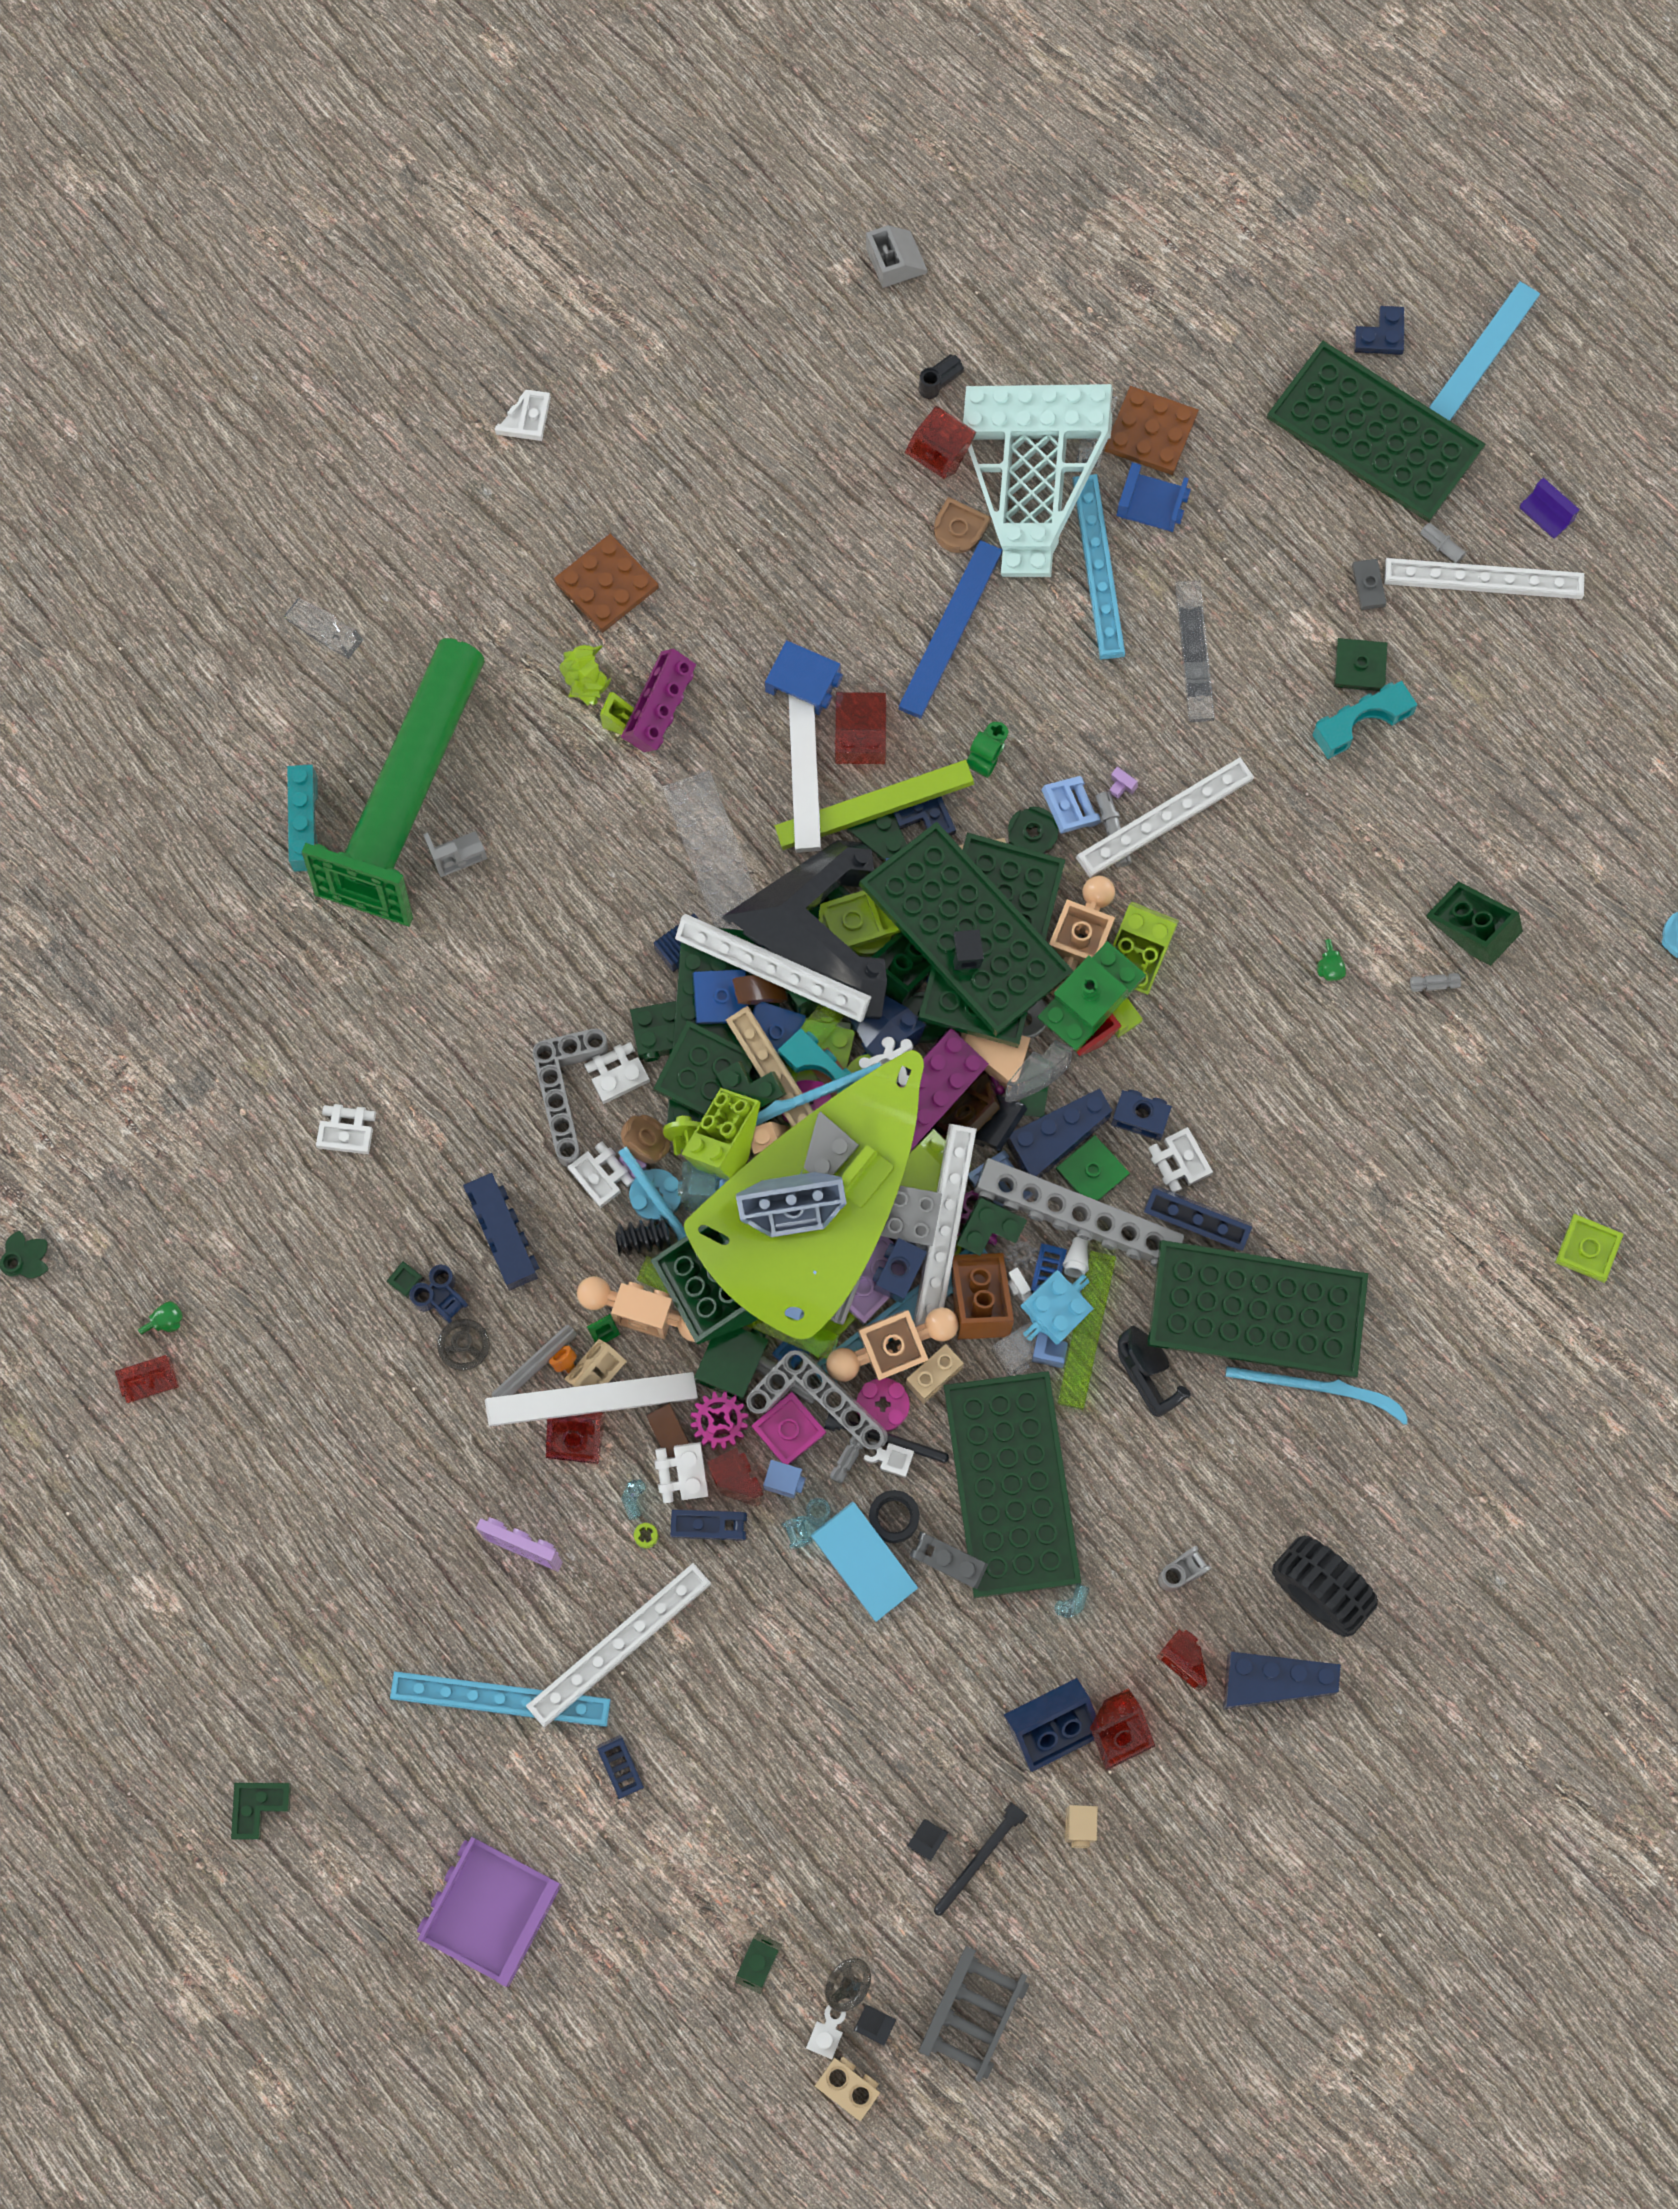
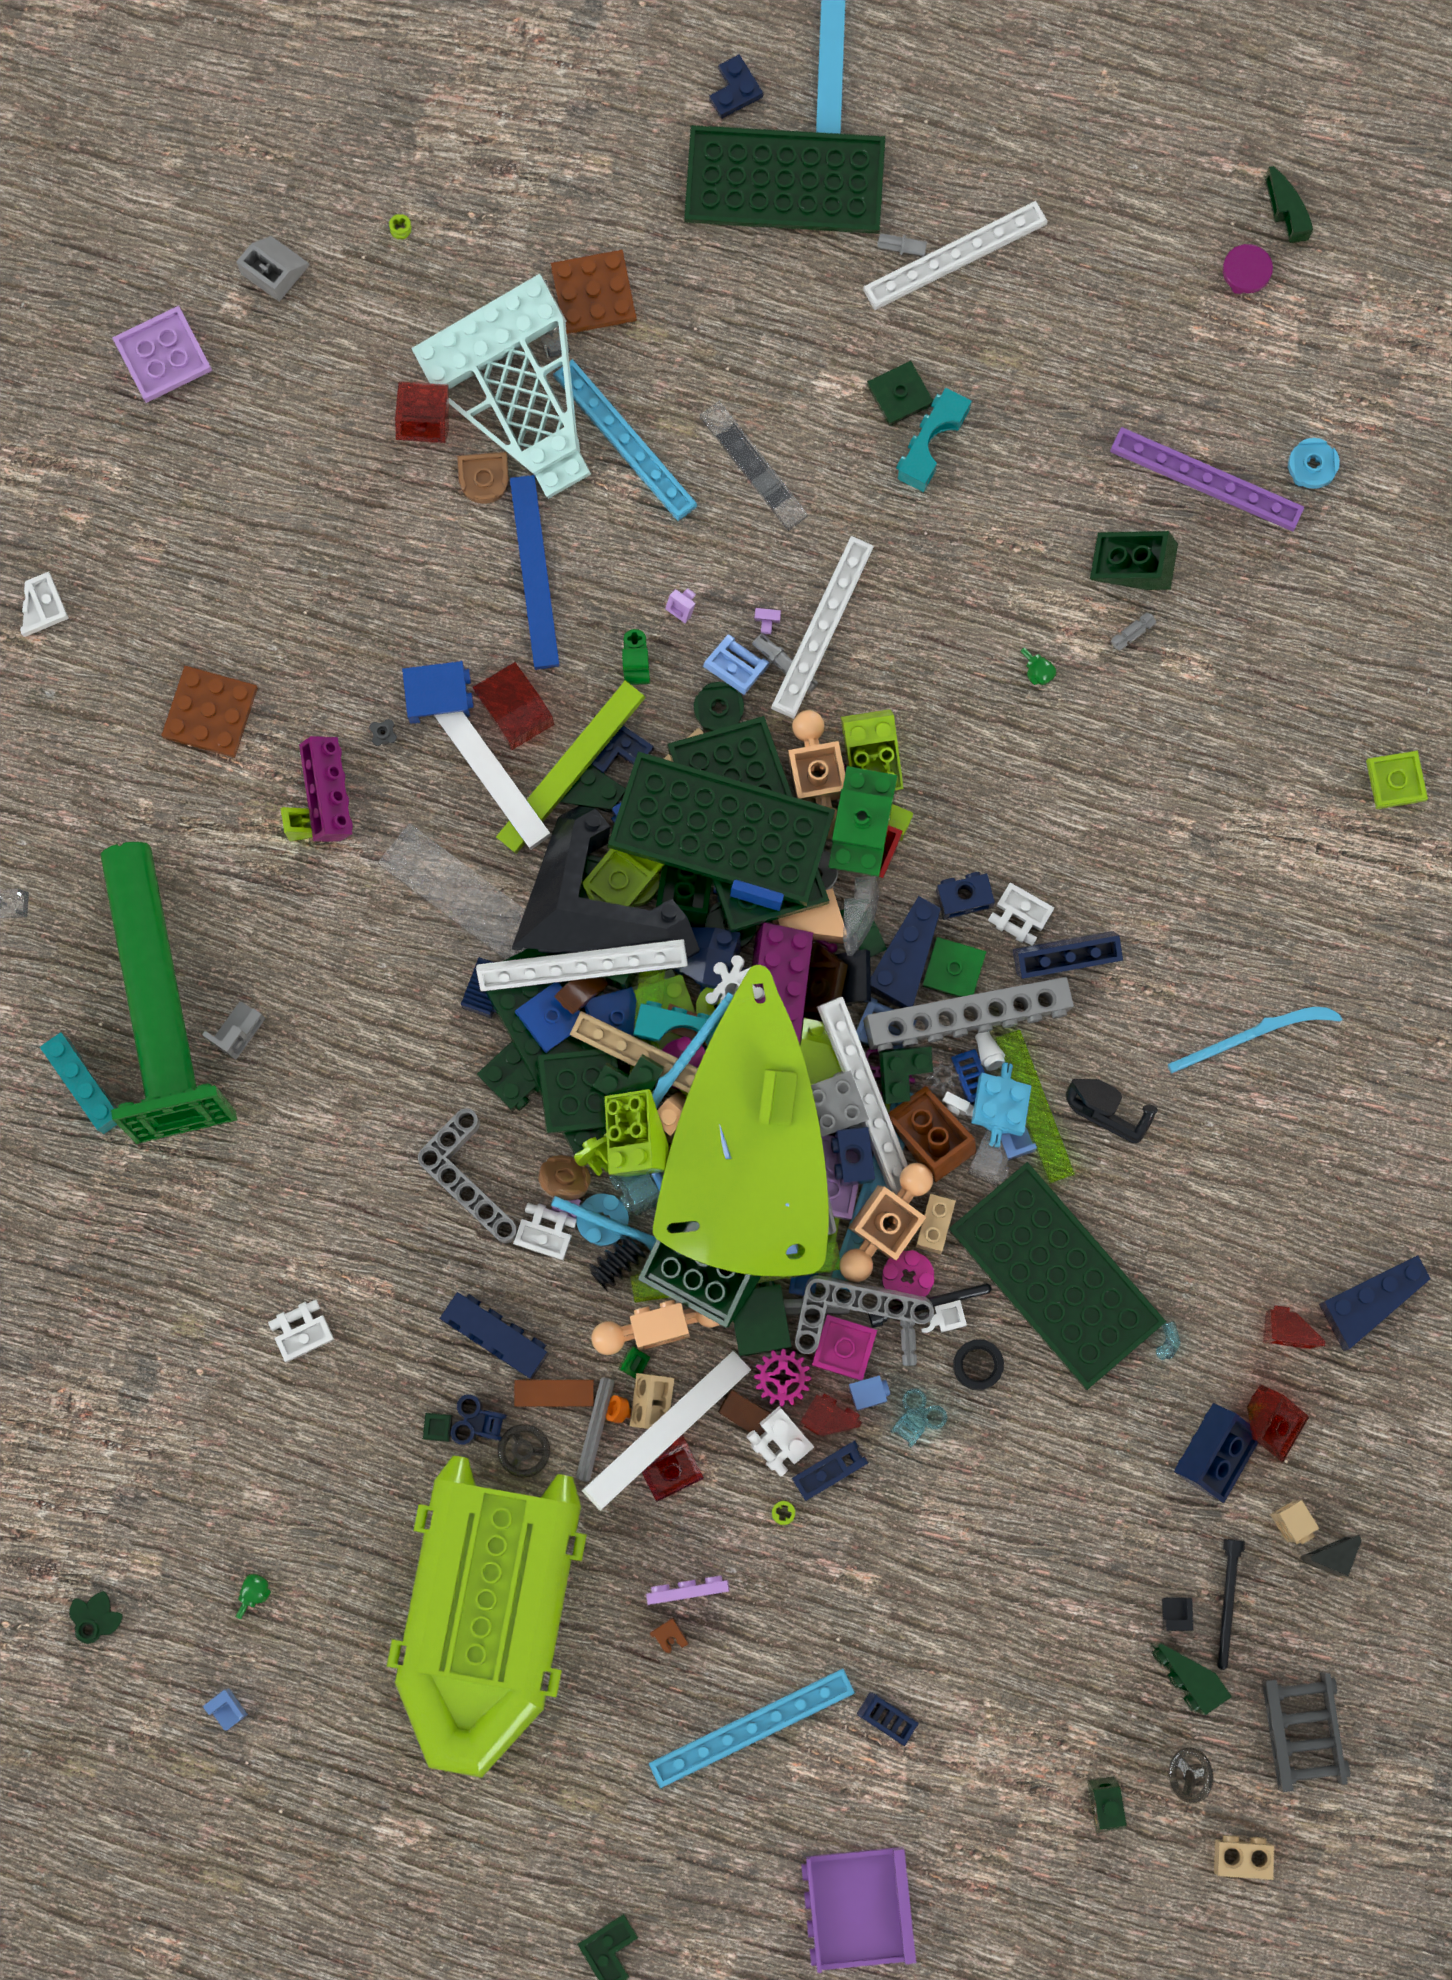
camera: 30 degrees left, 5 degrees up
(79, 1399) = (225, 1709): none -> medium blue panel
(147, 1378) = (273, 1654): clear red hinge -> none
(338, 1456) = (484, 1616): none -> lime piece
(481, 1570) = (667, 1632): none -> dark orange hinge
(520, 1312) = (553, 1393): none -> dark orange tile
(583, 674) = (246, 805): lime hair -> none
(618, 1645) = (821, 1619): white tile -> none
(620, 1079) = (507, 1140): white plate -> none
(630, 1497) = (749, 1488): clear light blue arm -> none
(737, 691) = (388, 737): none -> dark grey plate
(758, 274) = (162, 354): none -> lavender plate
(792, 1203) = (732, 1158): sand blue wedge -> none
(825, 2036) = (1198, 1828): white plate -> none
(828, 1147) = (732, 1093): light grey wing -> none
(864, 1561) = (979, 1419): medium azure tile -> none
(875, 2025) = (1232, 1792): black panel -> none
(906, 1907) = (1200, 1685): none -> dark green slope
(940, 375) = (381, 351): black piece -> none
(949, 1560) = (1047, 1372): dark grey plate -> none
(958, 1000) = (757, 895): none -> blue tile
(968, 950) = (739, 847): black panel -> none
(1020, 291) = (400, 233): none -> lime bush
(1056, 728) = (681, 604): none -> lavender tile
(1096, 1877) = (1336, 1556): none -> pearl dark grey slope
(1152, 500) = (634, 353): blue panel -> none
(1187, 1567) = (1242, 1252): light grey piece -> none
(1258, 1309) = (1165, 1001): dark green plate -> none
(1325, 1586) = (1368, 1199): black tyre -> none
(1369, 584) = (863, 318): dark grey plate -> none
(1549, 508) = (972, 161): dark purple panel -> none
(1584, 893) = (1207, 479): none -> medium lavender plate

